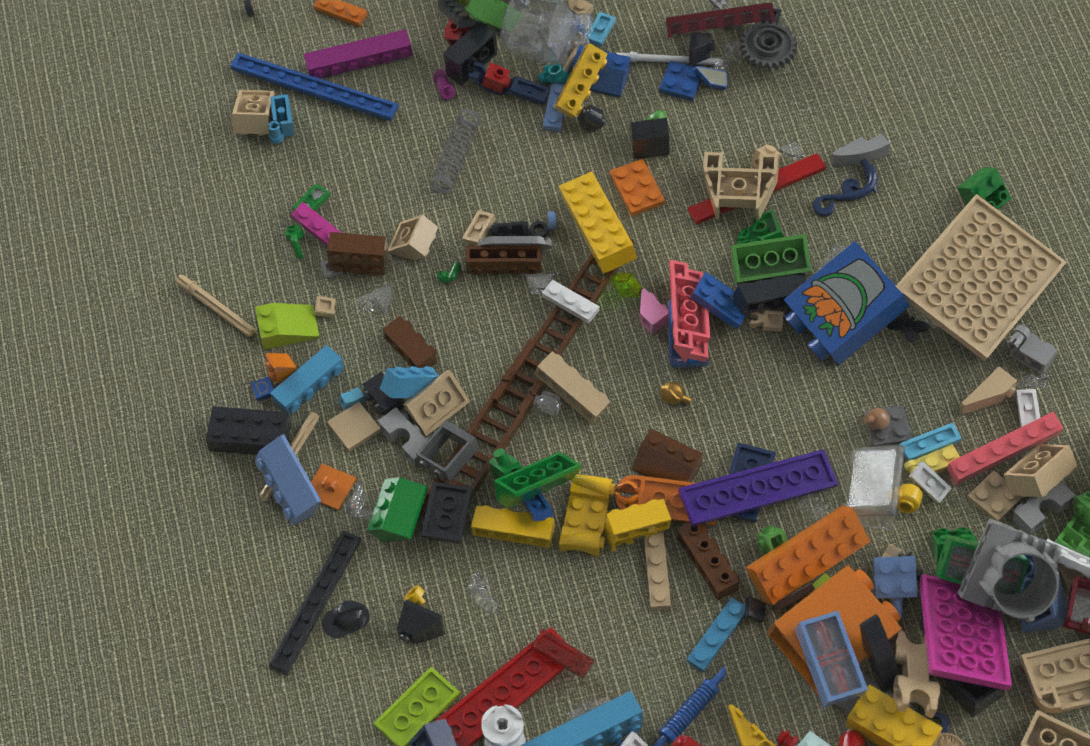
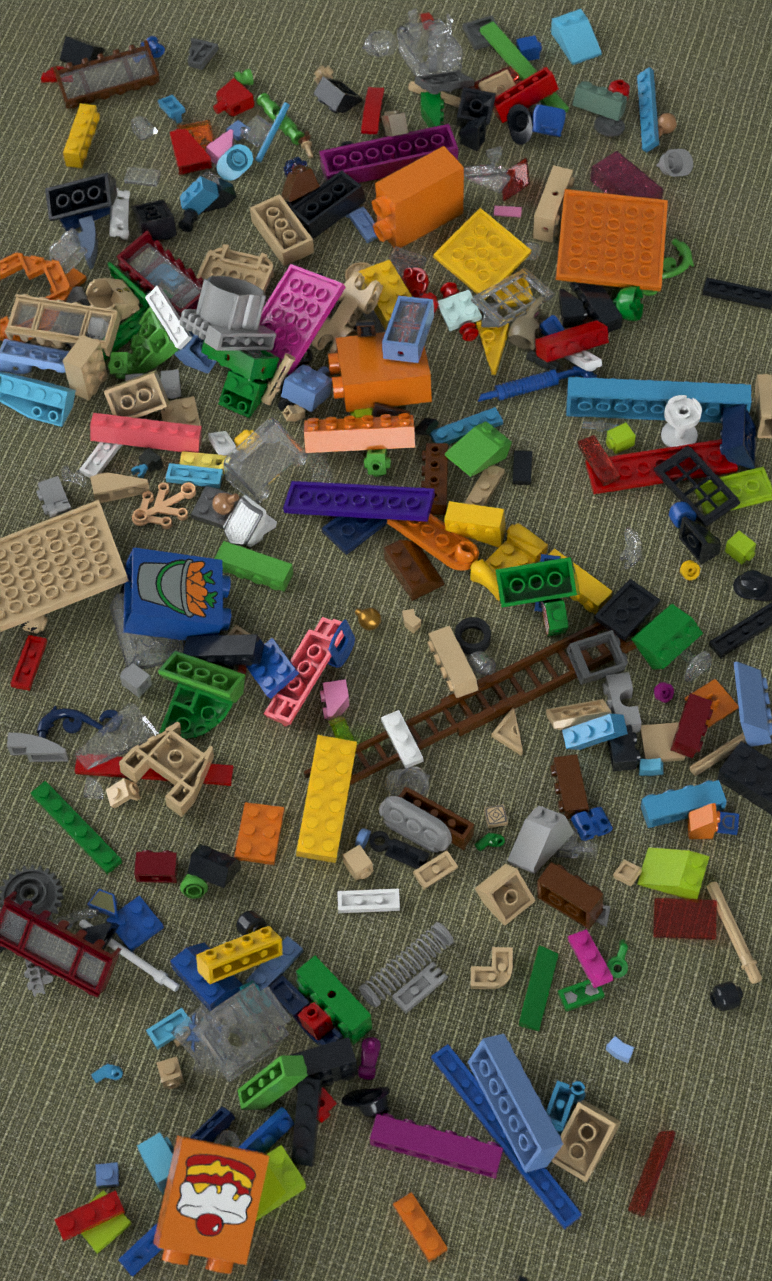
camera: 150 degrees left, 0 degrees up
(194, 117) = (651, 1172): none -> clear red slope
(197, 252) = (726, 996): none -> black head
(257, 293) = (685, 918): none -> clear red piece
(261, 181) = (619, 1049): none -> light blue piece
(314, 94) = (515, 1103): none -> medium blue brick
(333, 443) = (692, 726): none -> dark red brick
(346, 191) = (538, 989): none -> green slope
(372, 326) = (591, 823): none -> blue piece
(376, 467) = (664, 692): none -> magenta tile
(378, 644) = (740, 547): none -> lime brick
(384, 183) = (494, 976): none -> tan plate
(407, 286) = (539, 839): none -> light grey slope
(418, 670) = (719, 510): none -> black piece
(426, 54) = (369, 1101): none -> black piece
(436, 143) = (419, 987): none -> light grey hinge
(451, 647) = (679, 511): none -> blue head
(458, 295) = (495, 816): none -> tile
(489, 367) = (508, 732): none -> tan tile
(491, 95) = (334, 999): none -> green brick
(515, 181) = (368, 901): none -> white plate
(542, 200) = (358, 863): none -> tan brick
(559, 700) = (620, 438): none -> lime brick
(573, 415) = (475, 623): none -> black tyre
(636, 621) = (522, 467): none -> black tile
(637, 416) = (410, 620): none -> tan piece
(685, 601) = (479, 449): none -> bright green slope
(695, 120) = (156, 867): none -> dark red brick
(782, 119) = (76, 827): none -> green plate
(803, 195) = (116, 737): none -> clear wedge
(808, 386) = (255, 566): none -> bright green brick
(826, 237) = (135, 680): none -> light grey brick
(843, 422) = (247, 523): none -> white piece
(926, 210) = (28, 662): none -> red plate
(926, 565) = (268, 395): none -> tan pin
(935, 399) = (162, 506): none -> light nougat plant
(982, 433) = (149, 461): none -> pearl dark grey piece

